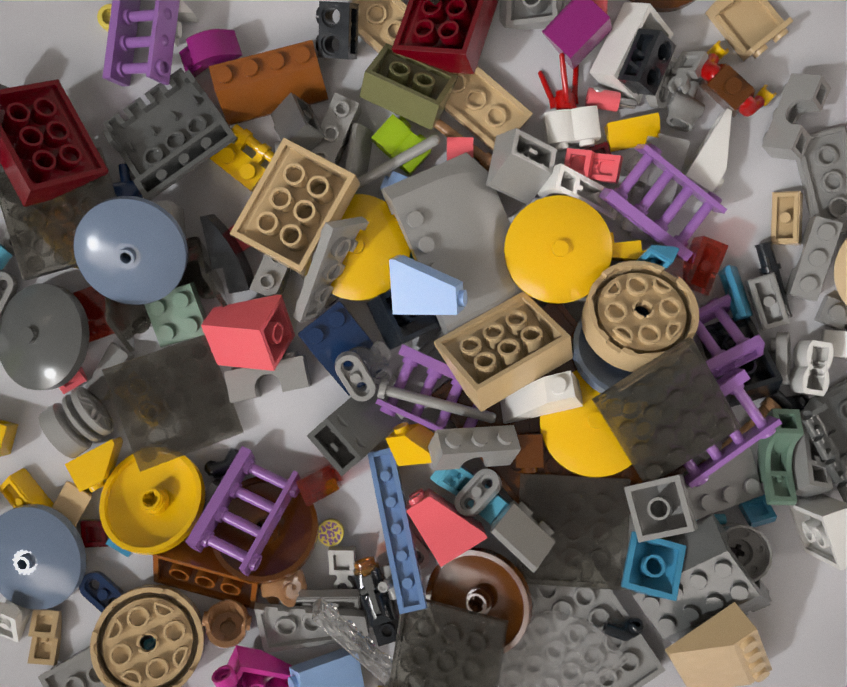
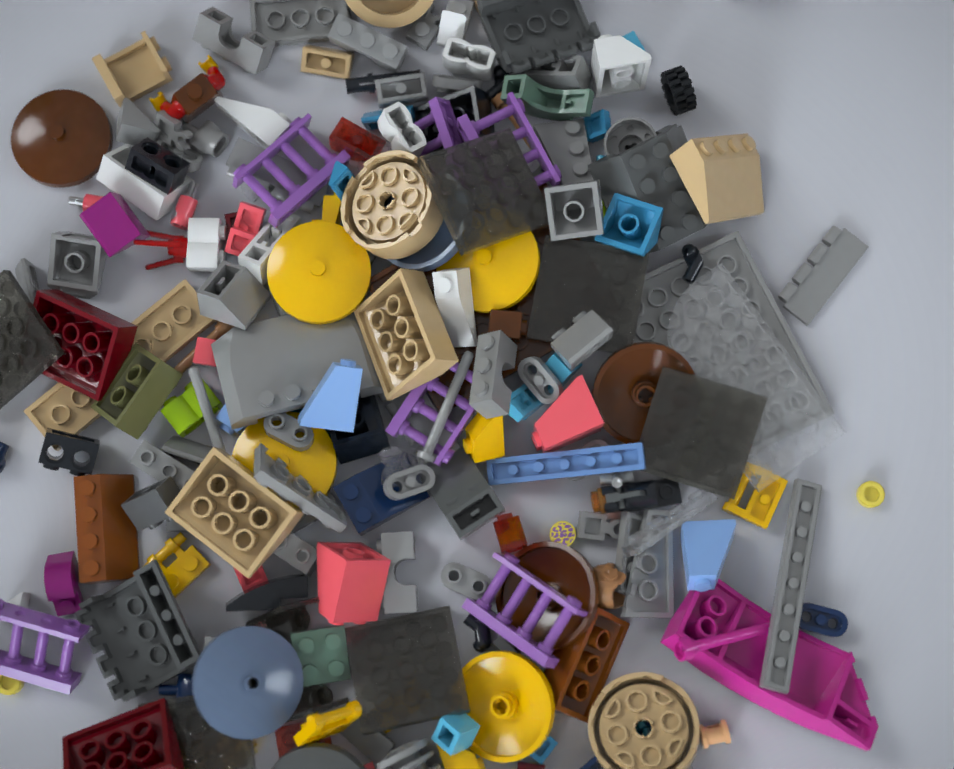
camera: 70 degrees left, 10 degrees down
(97, 325) = (328, 724): none -> yellow plate
(117, 460) = (455, 733): none -> medium azure brick
(226, 623) = (637, 648): medium nougat cap -> none
(272, 445) = (466, 580): none -> light grey plate
(386, 246) = (287, 430): none -> light grey plate
(631, 131) = (219, 190): yellow slope -> none
(687, 30) = (134, 125): none -> light grey slope
(723, 308) = (398, 128): none -> white brick
(809, 592) = (678, 90): none -> black tyre

